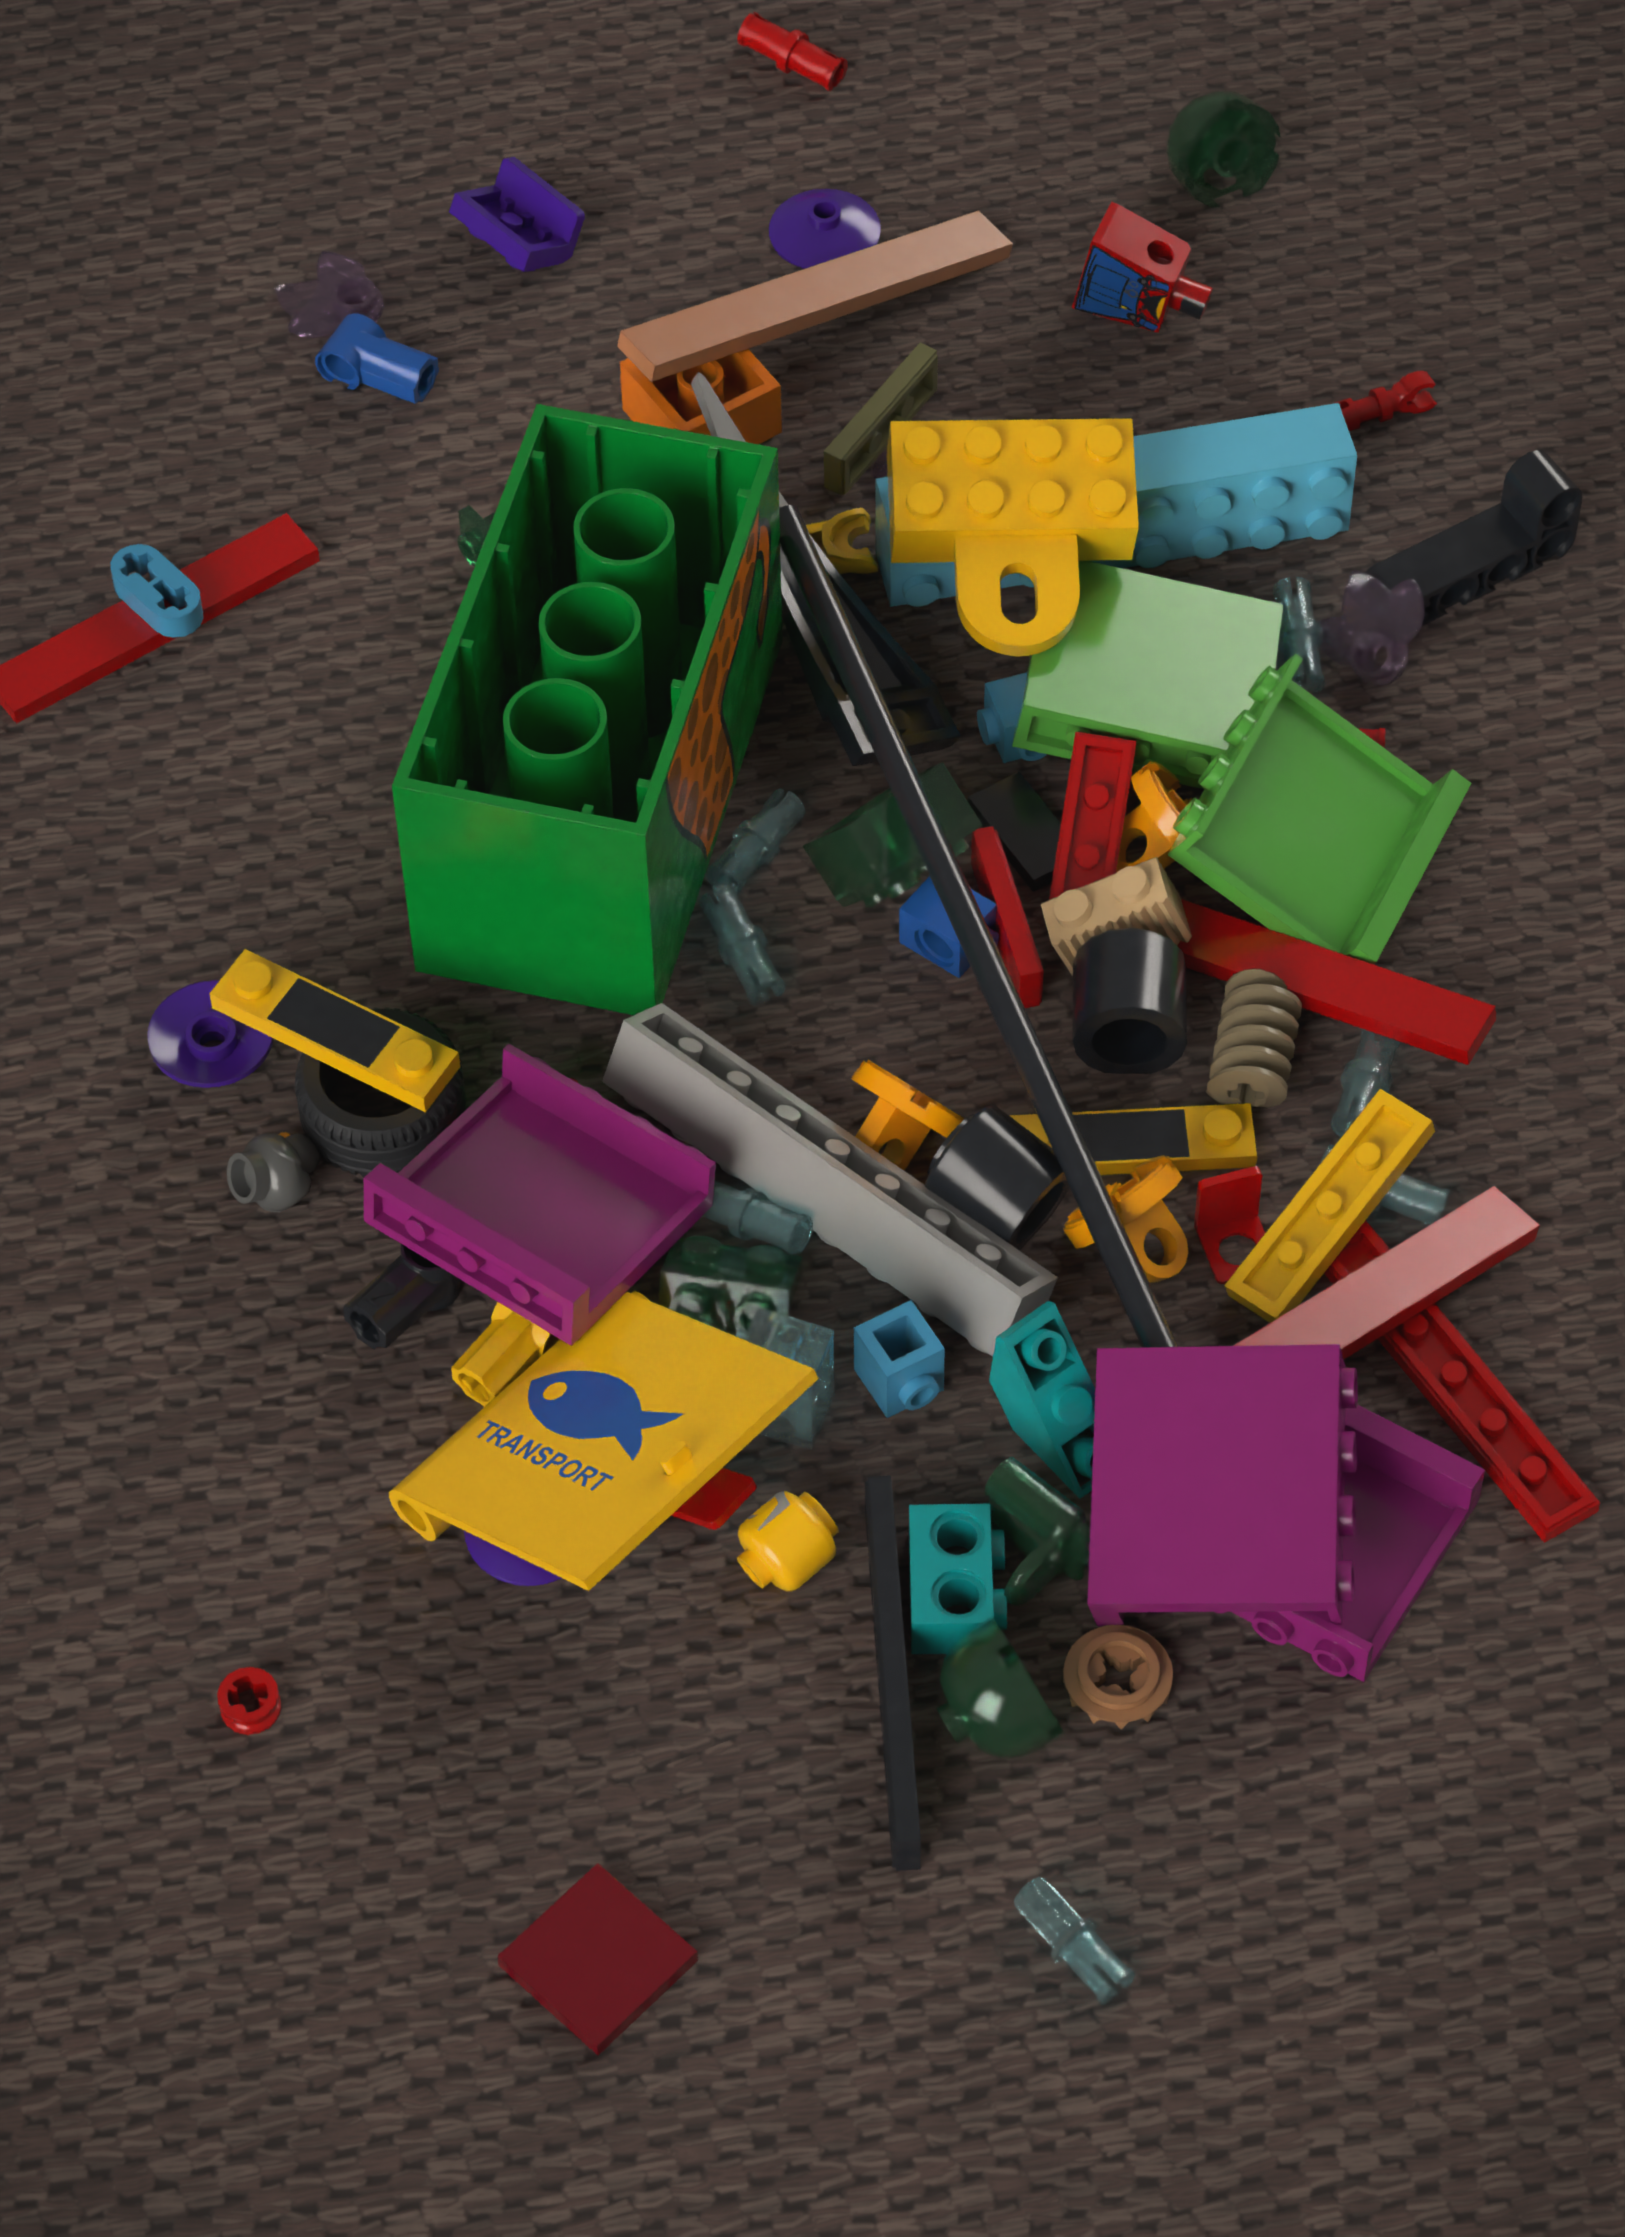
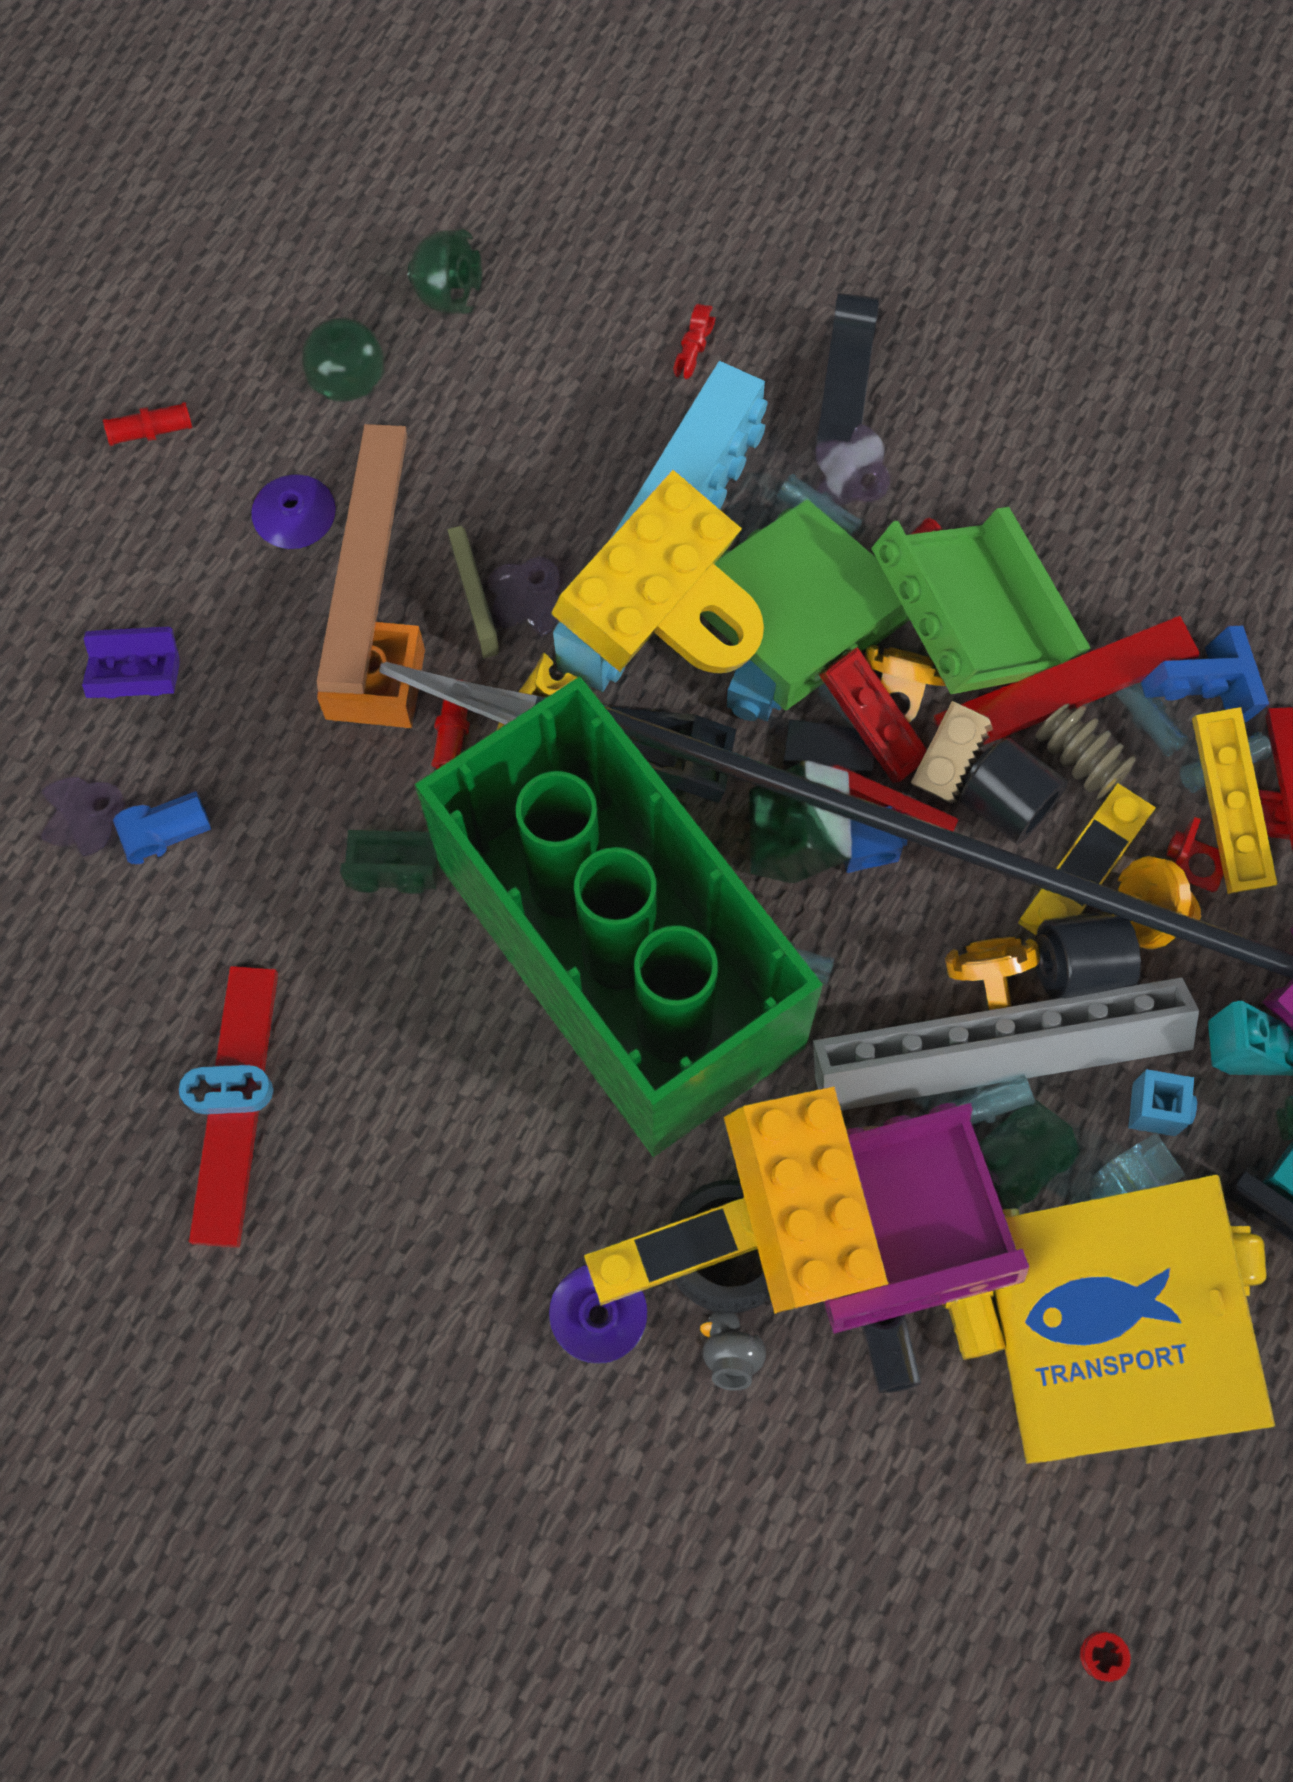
camera: 50 degrees left, 15 degrees up
(463, 1062) = (804, 1199): none -> light orange brick
(1032, 142) = (342, 359): none -> clear green cylinder
(1137, 273) = (499, 384): torso -> none
(1459, 1092) = (1226, 673): none -> blue bracket

